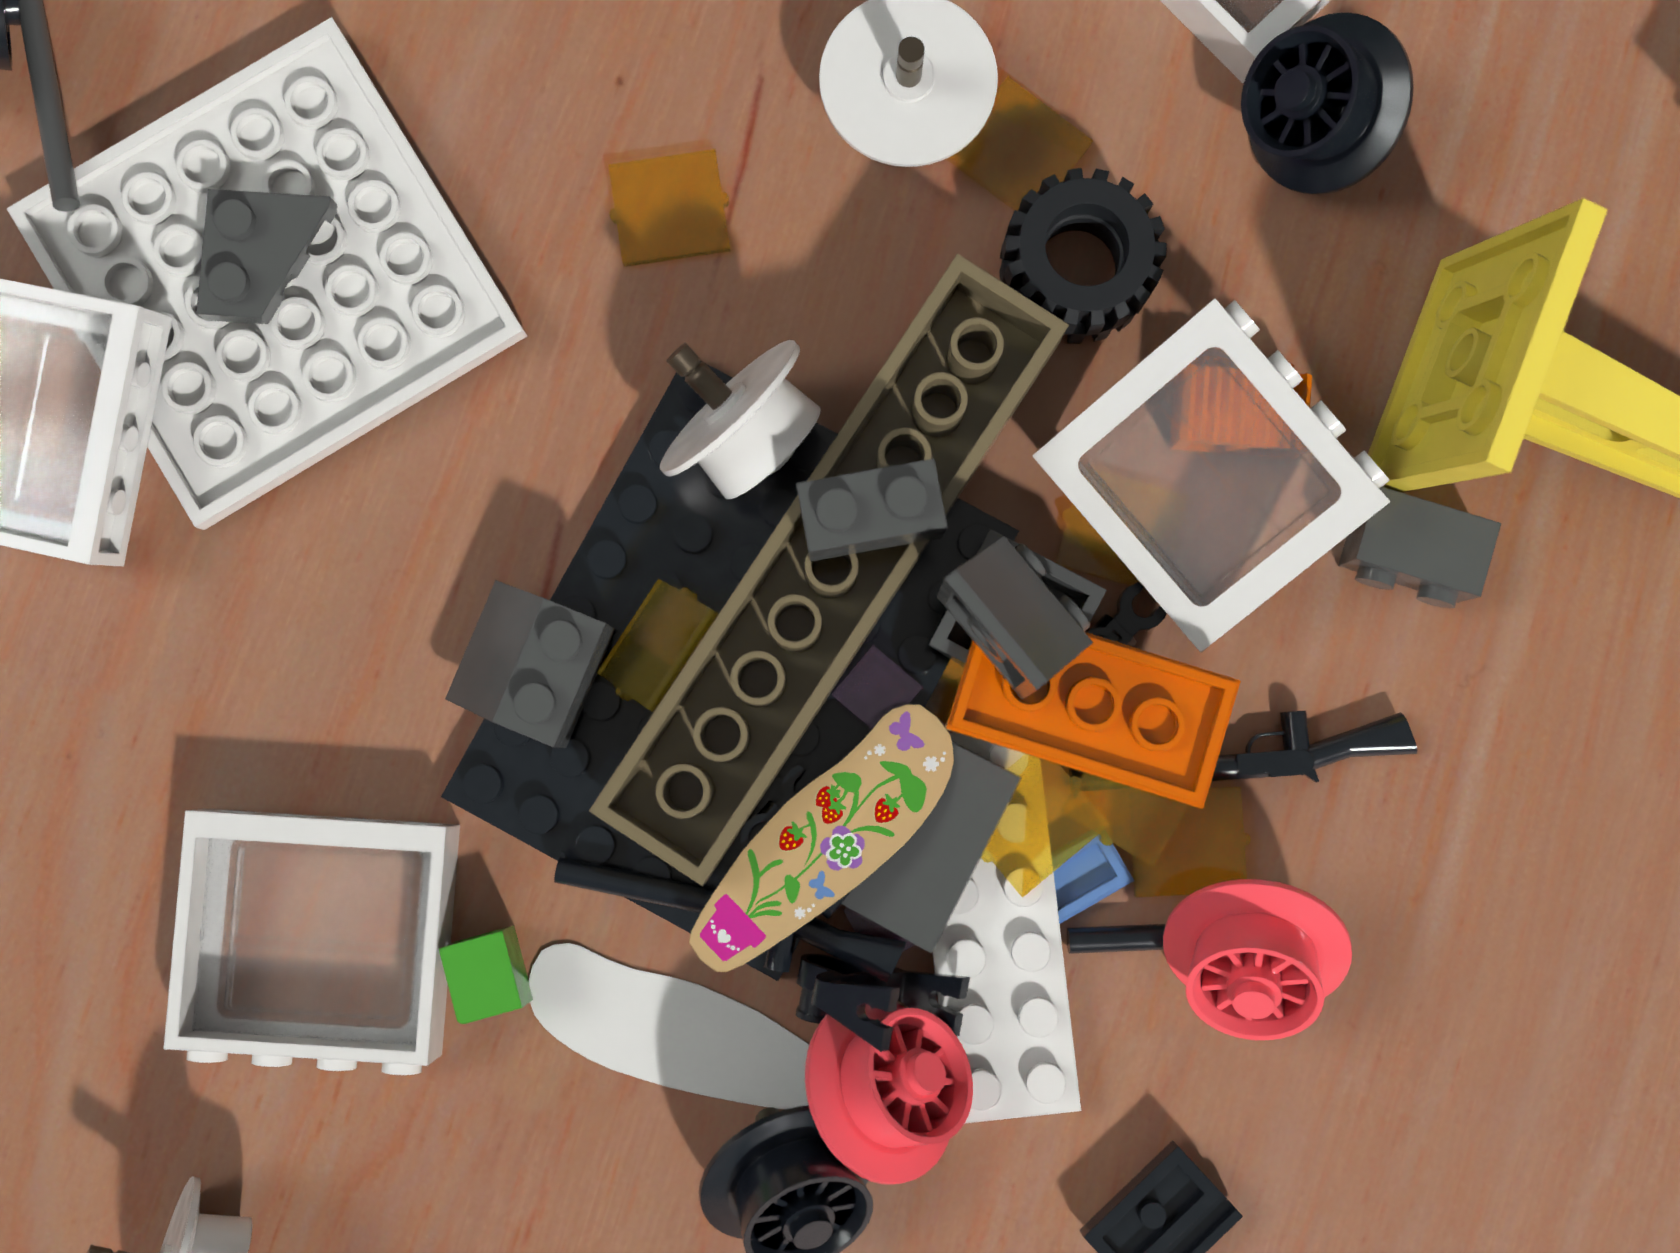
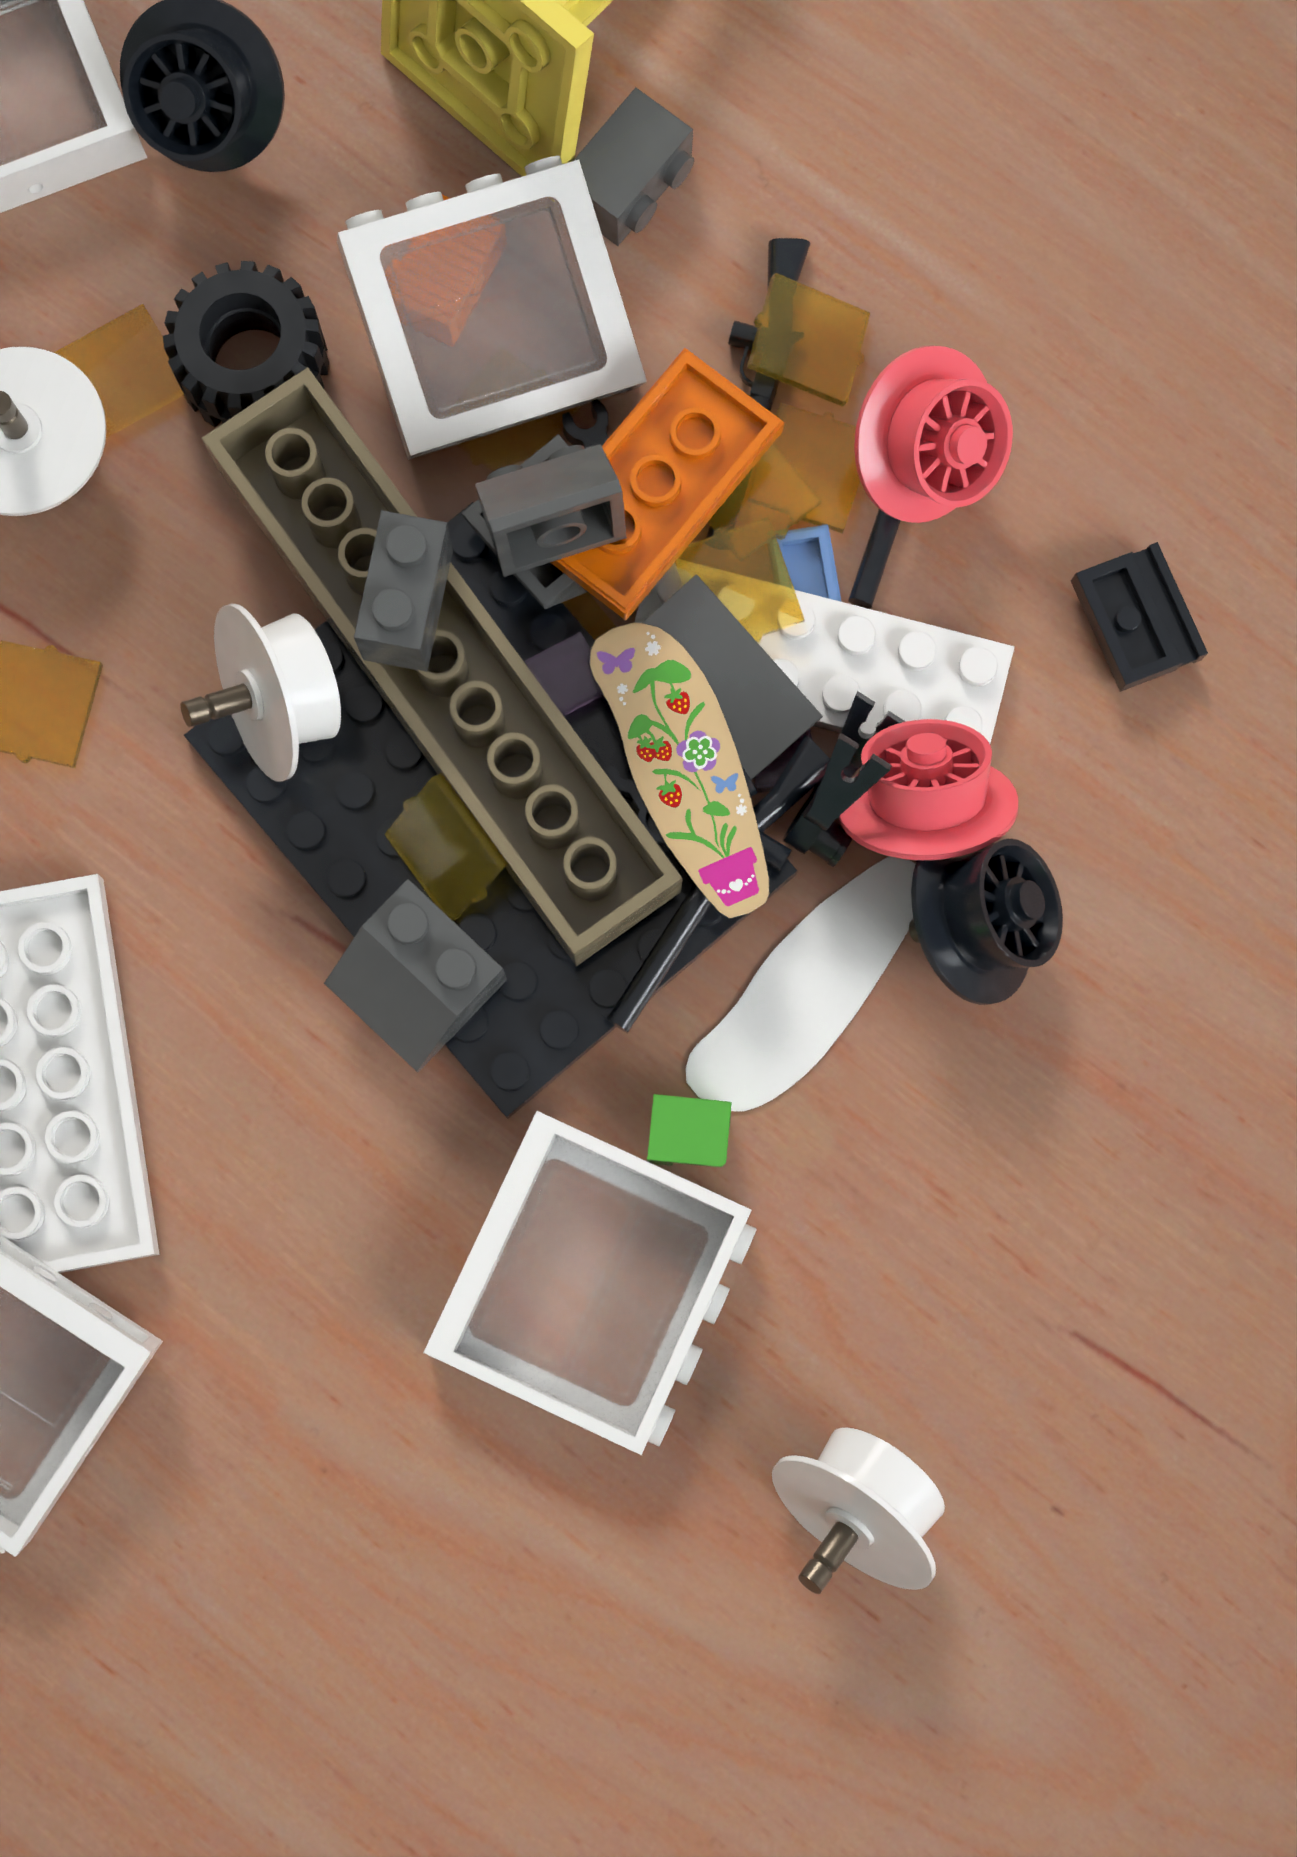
camera: 70 degrees left, 5 degrees down
(1314, 791) = (808, 339): none -> clear yellow piece

